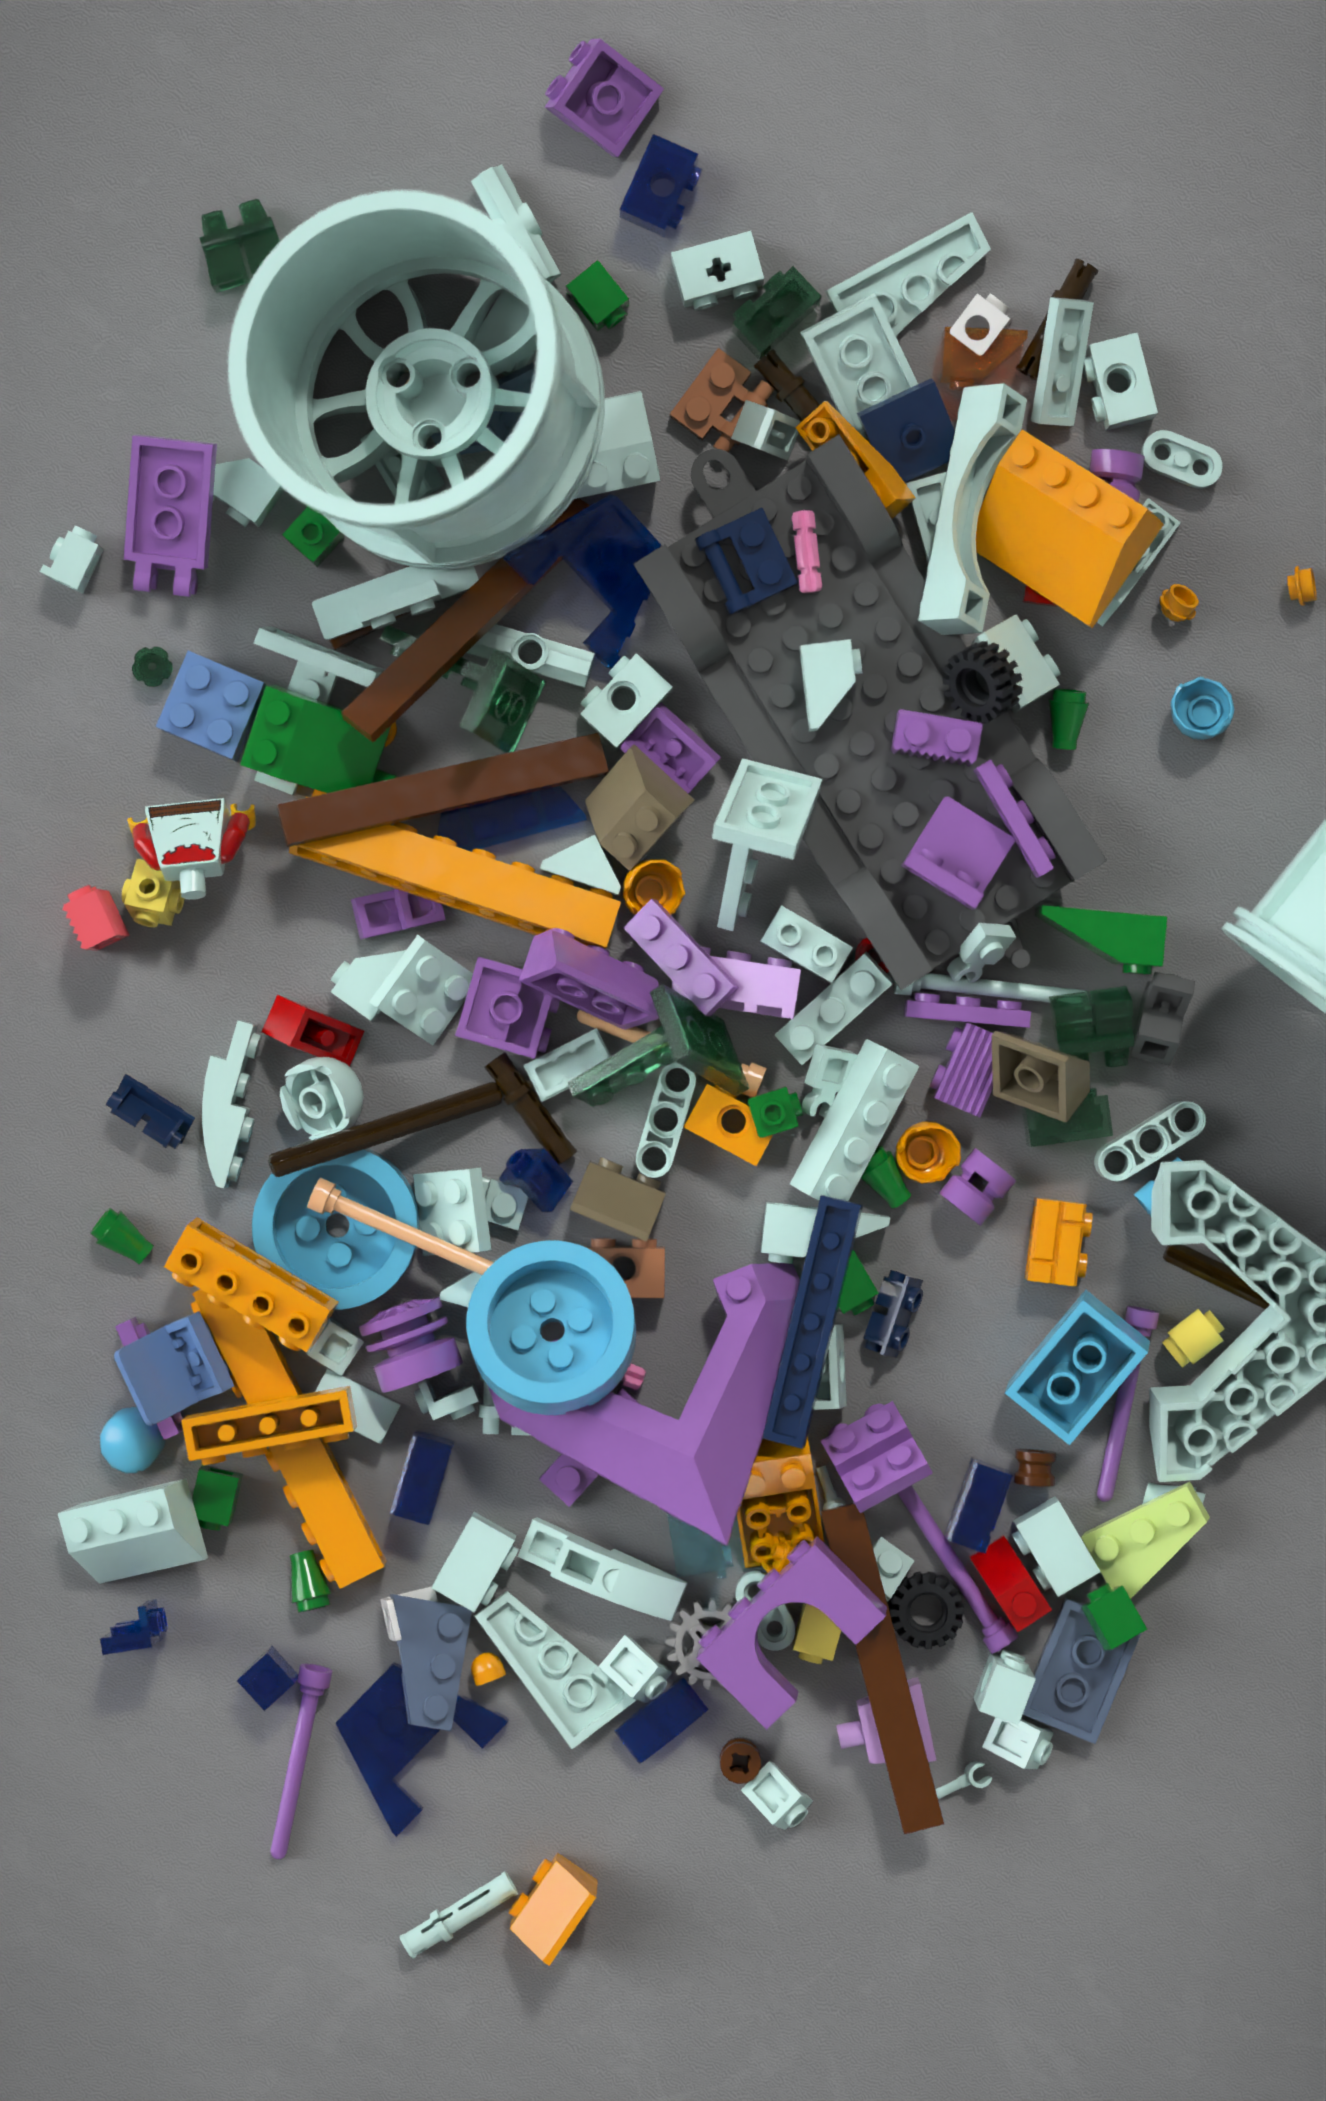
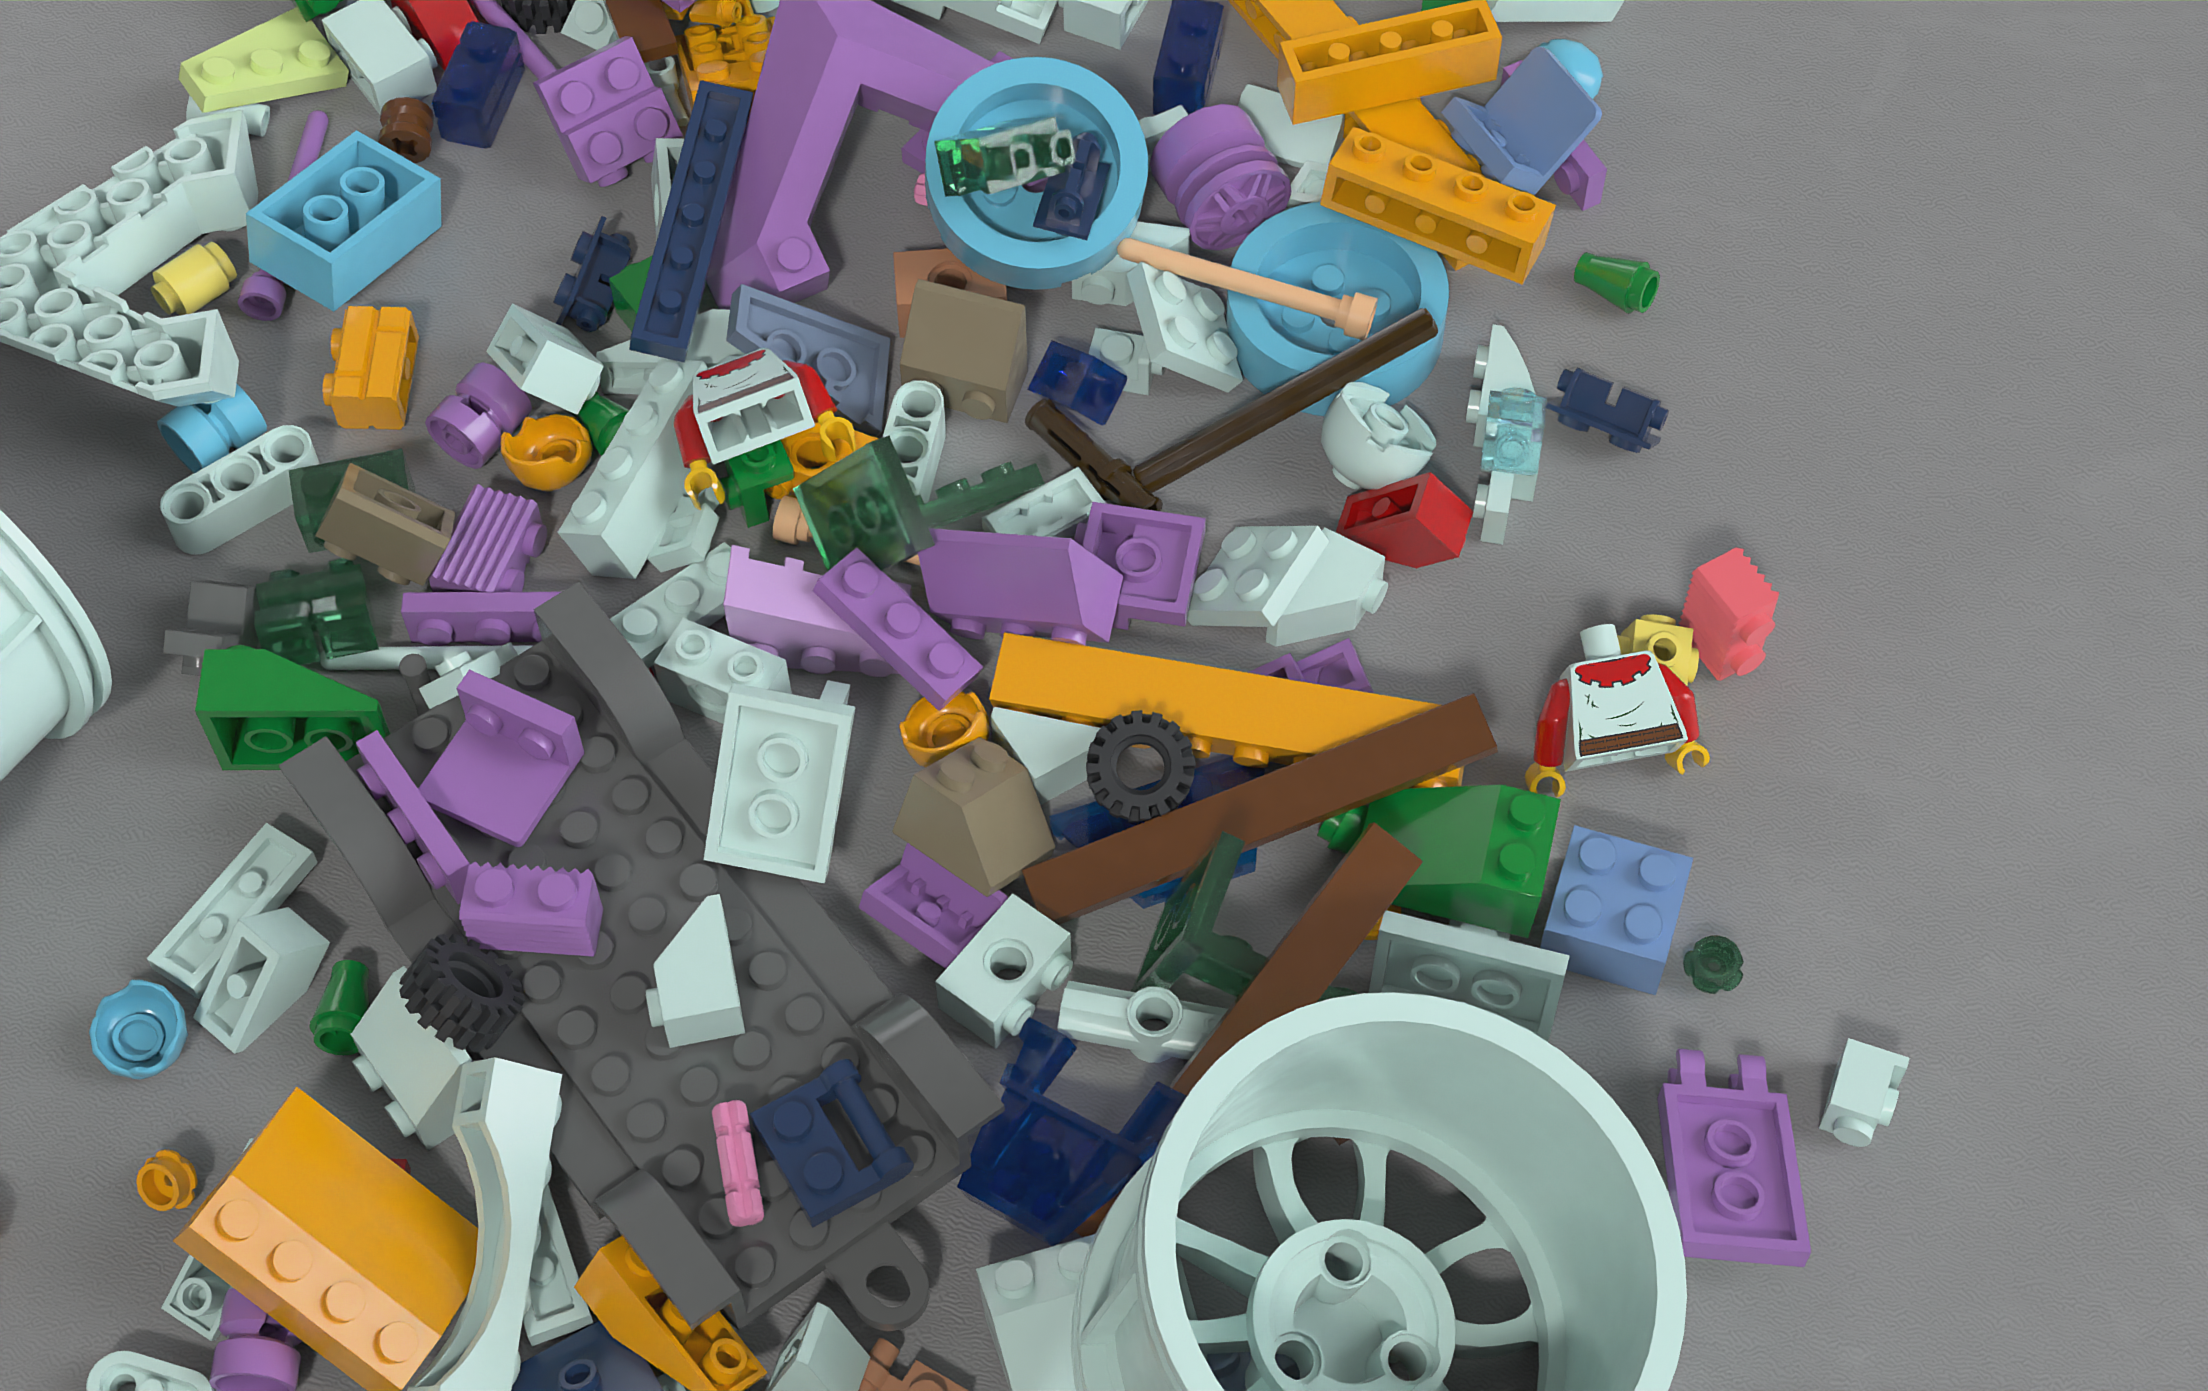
camera: 175 degrees right, 30 degrees down
(223, 1082) = (1513, 431): none -> clear light blue bracket
(521, 851) = (1149, 731): none -> black tyre
(526, 1296) = (1073, 196): none -> dark blue hinge
(573, 1314) = (1003, 155): none -> clear green hips
(726, 1210) = (845, 356): none -> sand blue wing
(779, 1147) = (747, 406): none -> torso
(927, 1218) = (545, 359): none -> light aqua brick
(1122, 743) = (259, 976): none -> light aqua slope
(1144, 798) = (249, 886): none -> light aqua plate

